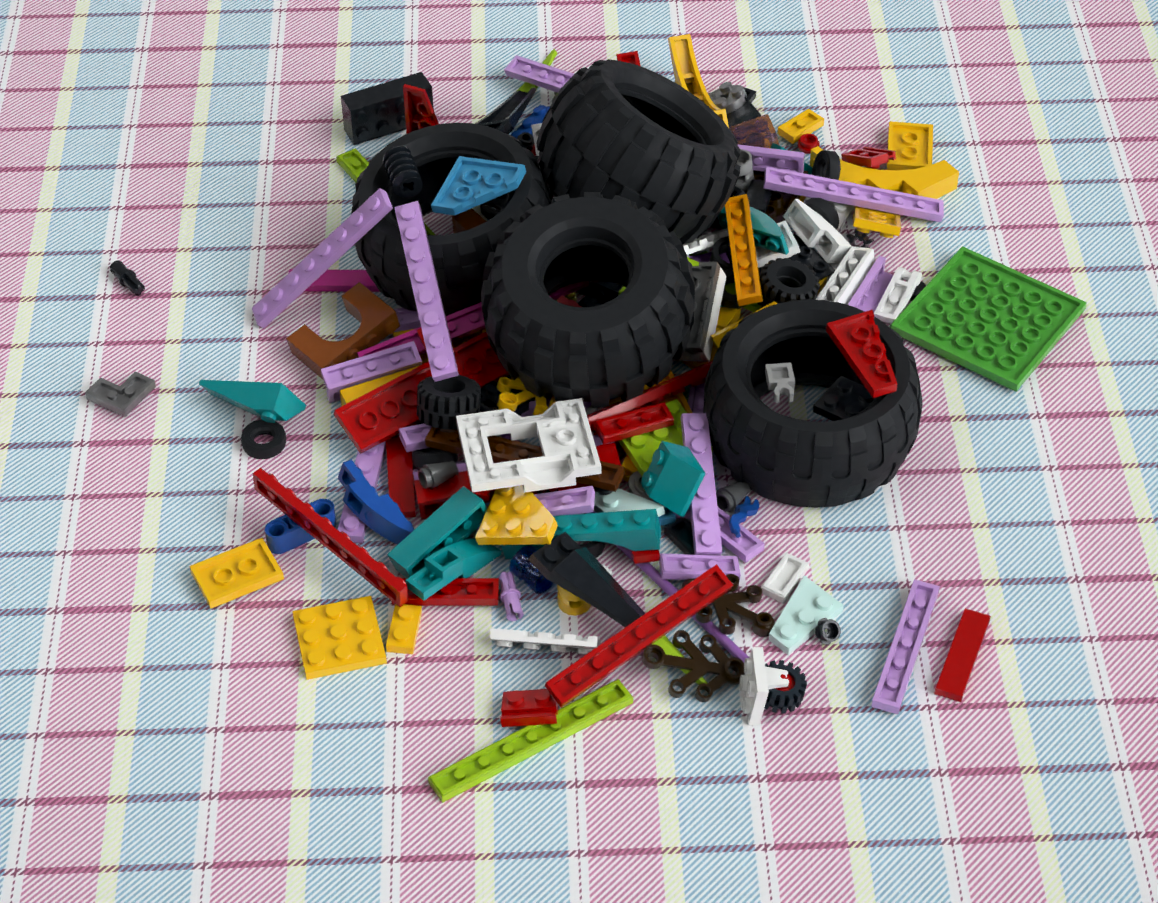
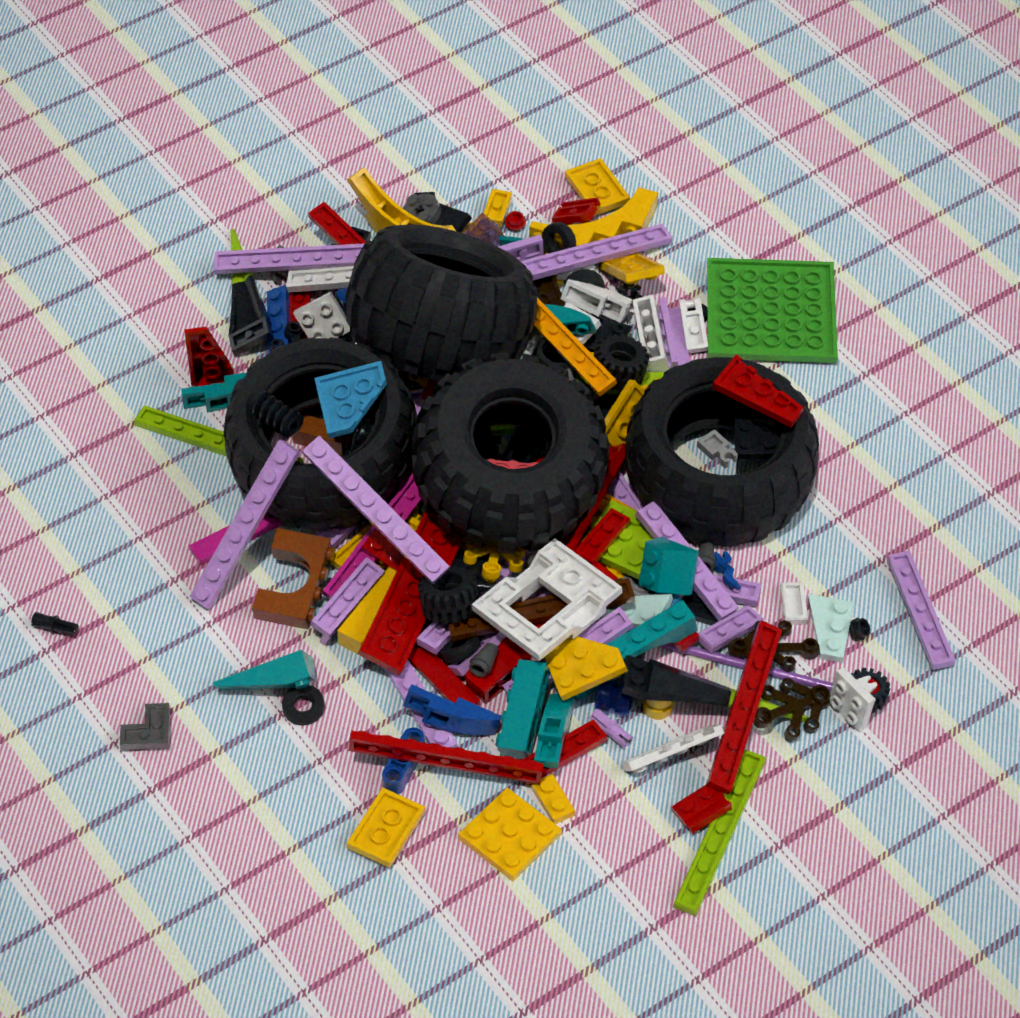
camera: 35 degrees left, 5 degrees up
(379, 108) = (147, 355): black brick -> none
(962, 655) = (961, 595): red tile -> none

